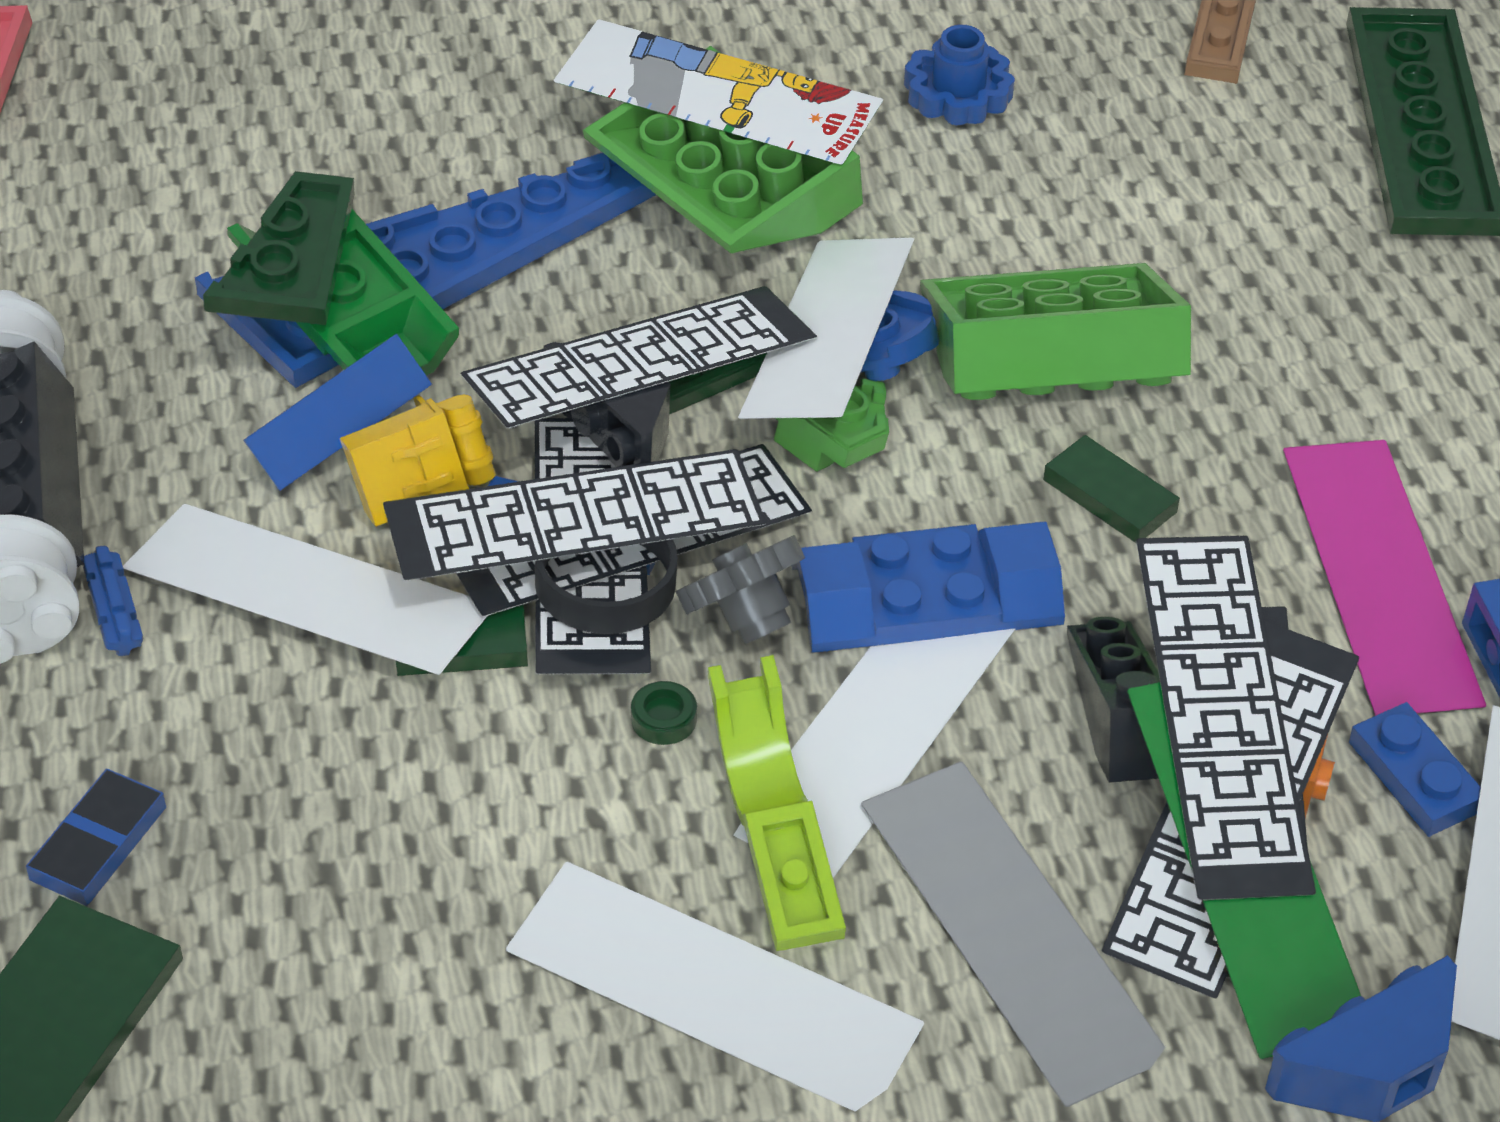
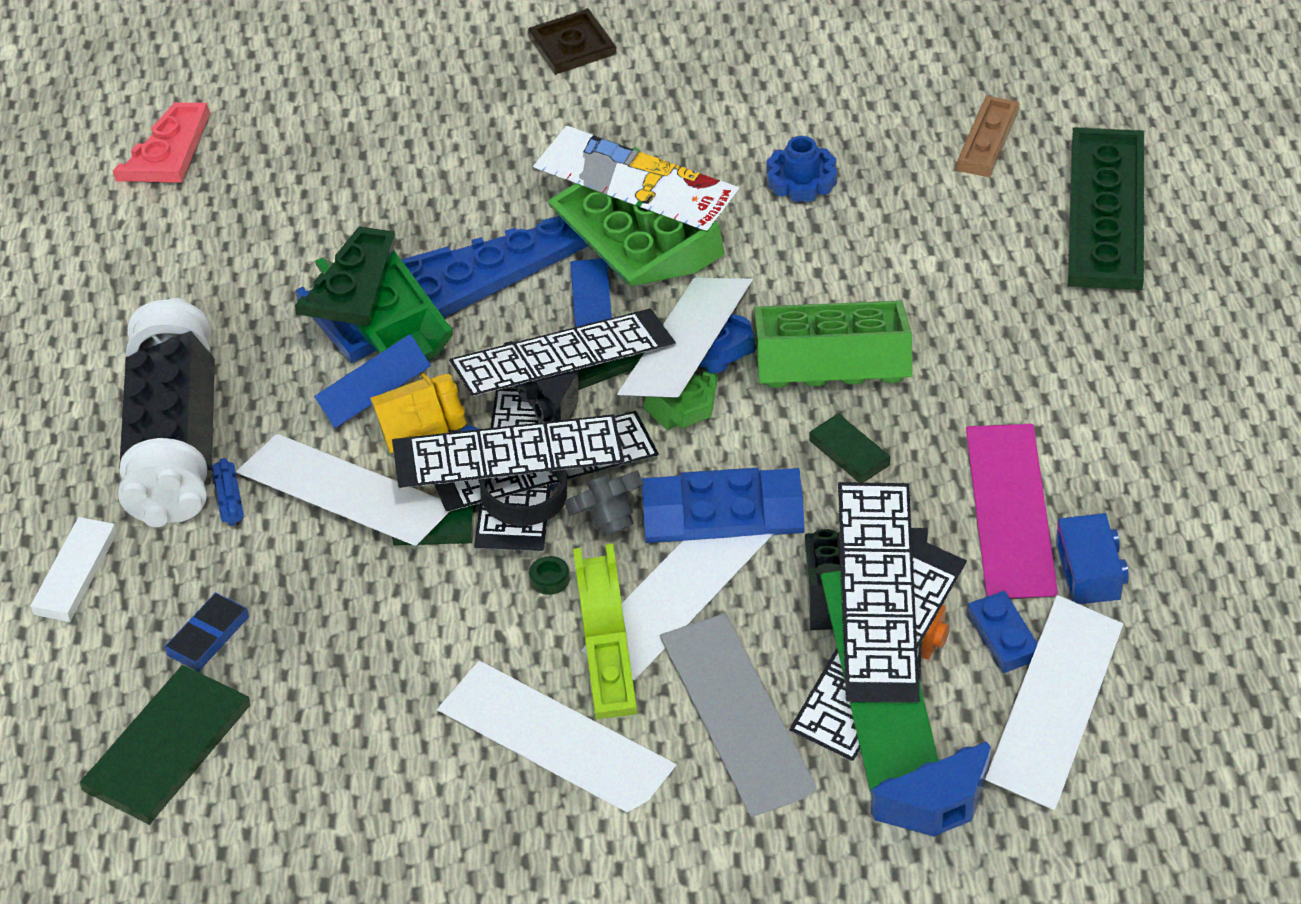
camera: 10 degrees right, 0 degrees up
(663, 265) = (590, 291): none -> blue tile

